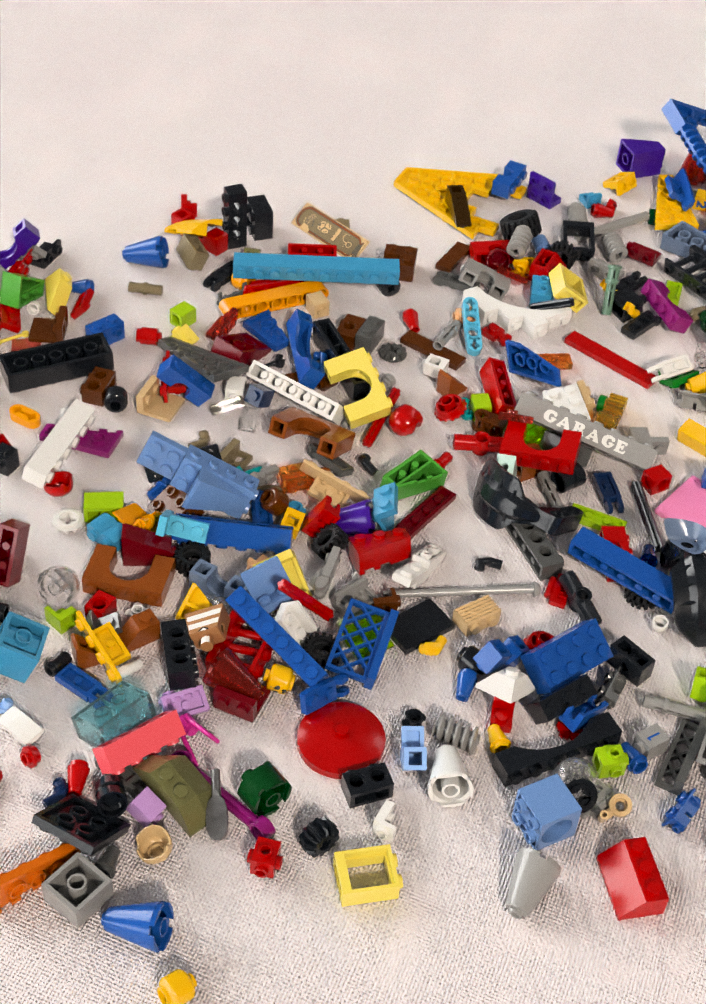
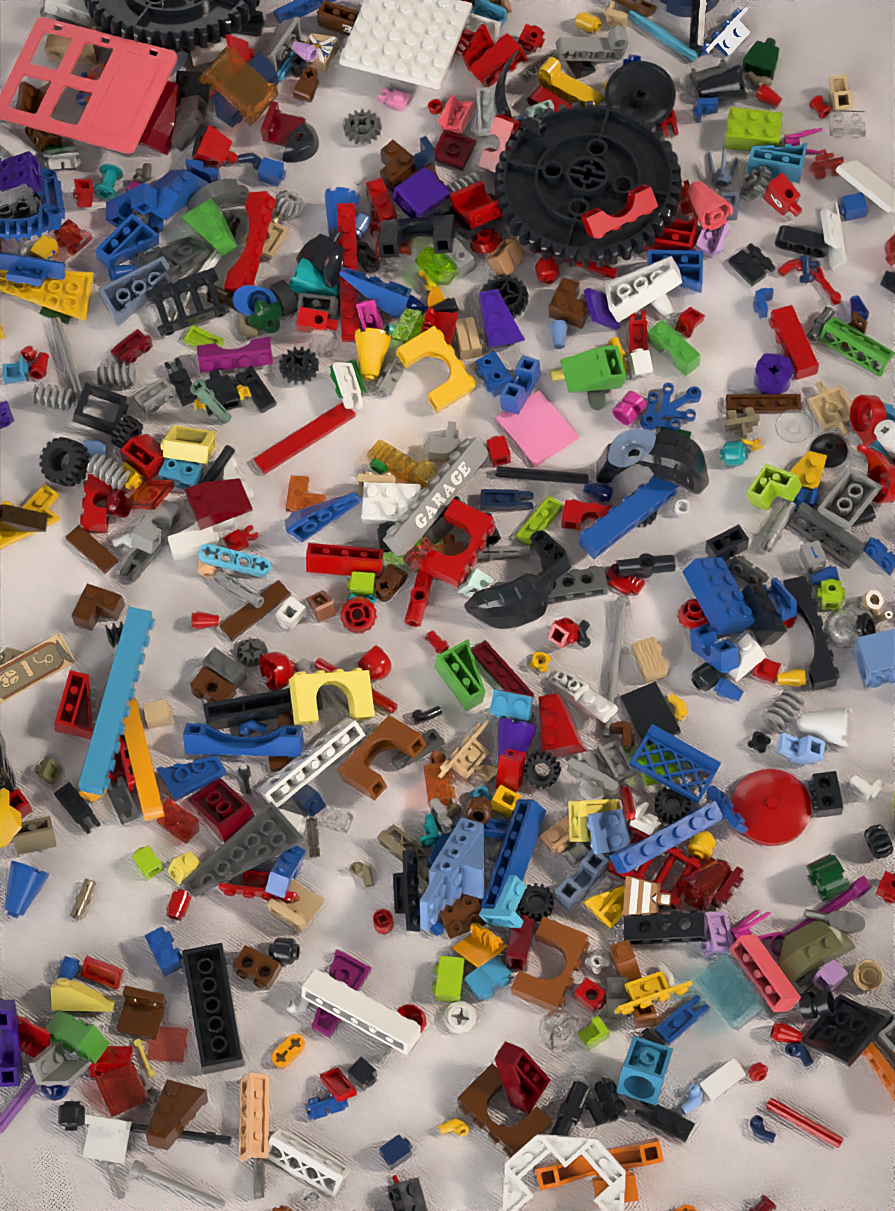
camera: 70 degrees left, 20 degrees up
(382, 359) = (277, 670): none -> red cylinder
(447, 535) = (540, 656): none -> yellow plate
(481, 542) = (563, 632): none -> red brick
(518, 302) = (217, 501): none -> dark red slope
(676, 344) = (298, 366): none -> black gear

